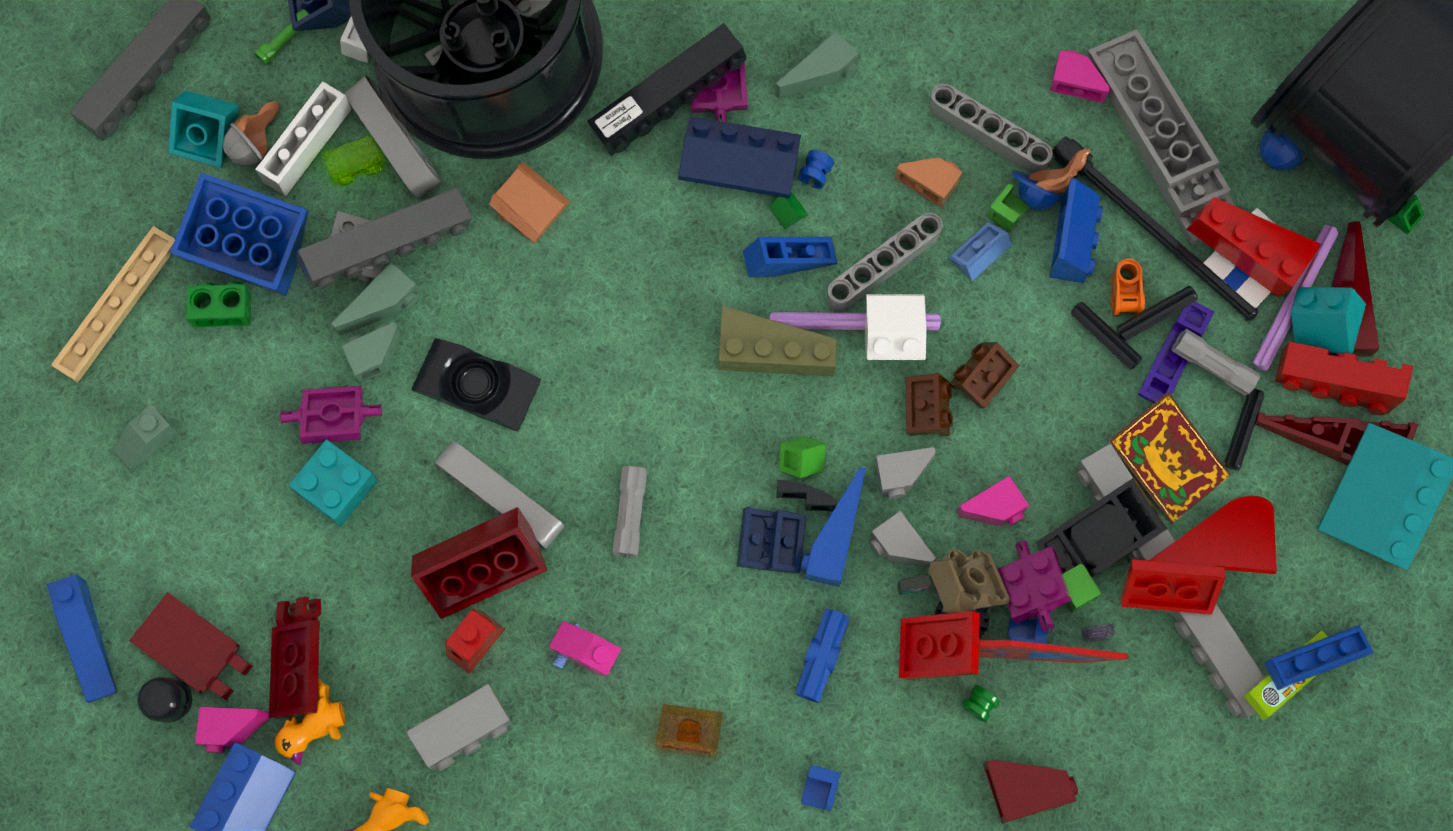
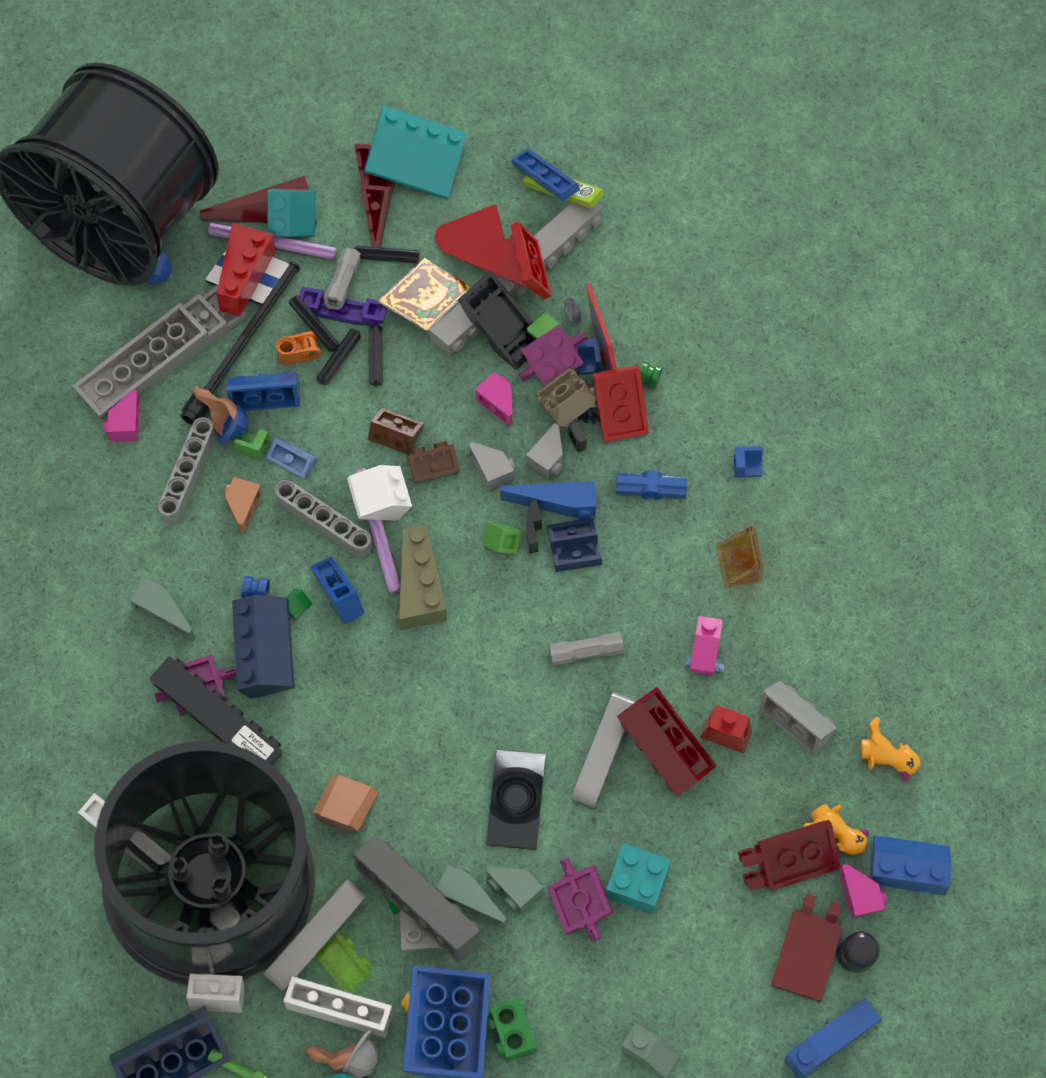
camera: 105 degrees left, 10 degrees down
(1028, 789) = (701, 332): dark red slope -> none
(1097, 378) = (375, 355): none -> black axle
(1343, 378) = (331, 195): red wedge -> none

